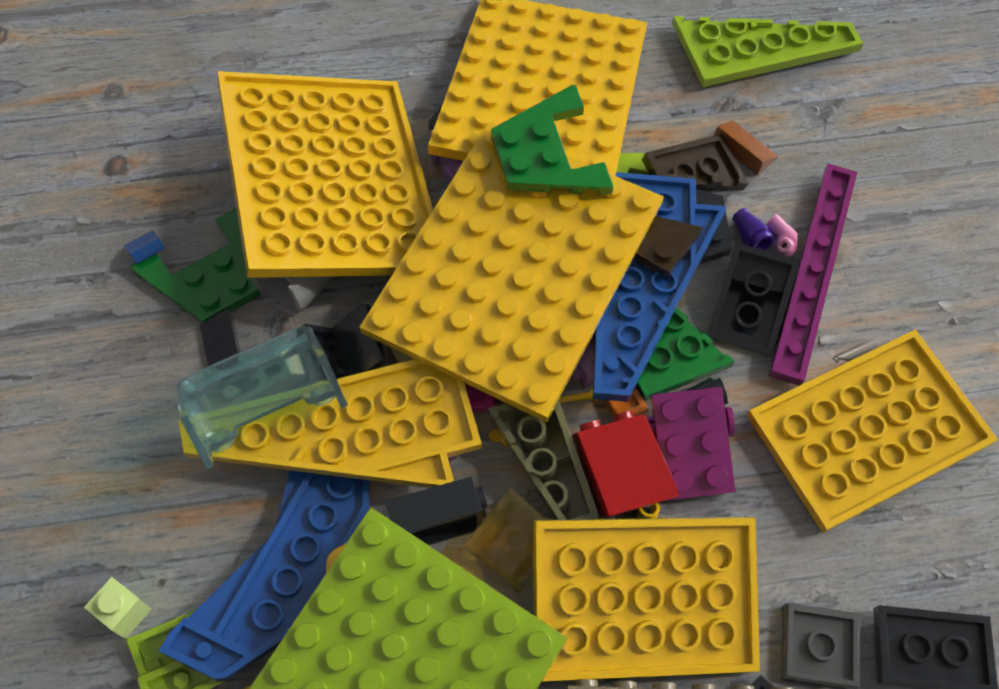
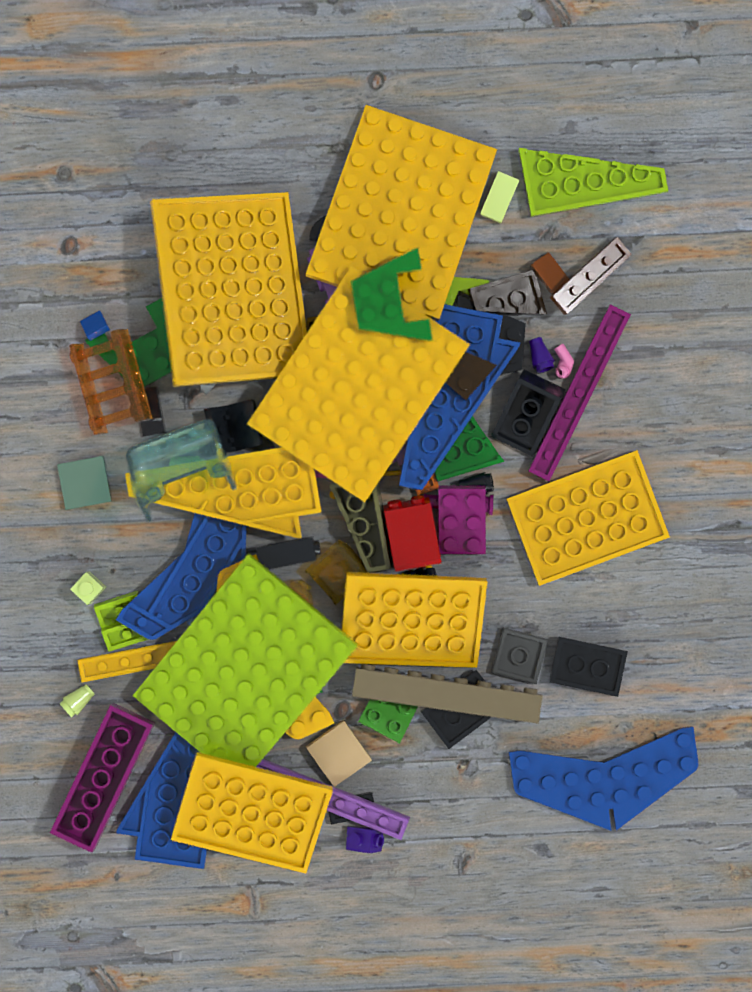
camera: 15 degrees right, 25 degrees up
(121, 454) = (84, 482): none -> sand green tile
(193, 308) = (132, 385): none -> clear orange fence
(659, 70) = (499, 197): none -> yellowish green tile
(794, 133) = (590, 275): none -> plate

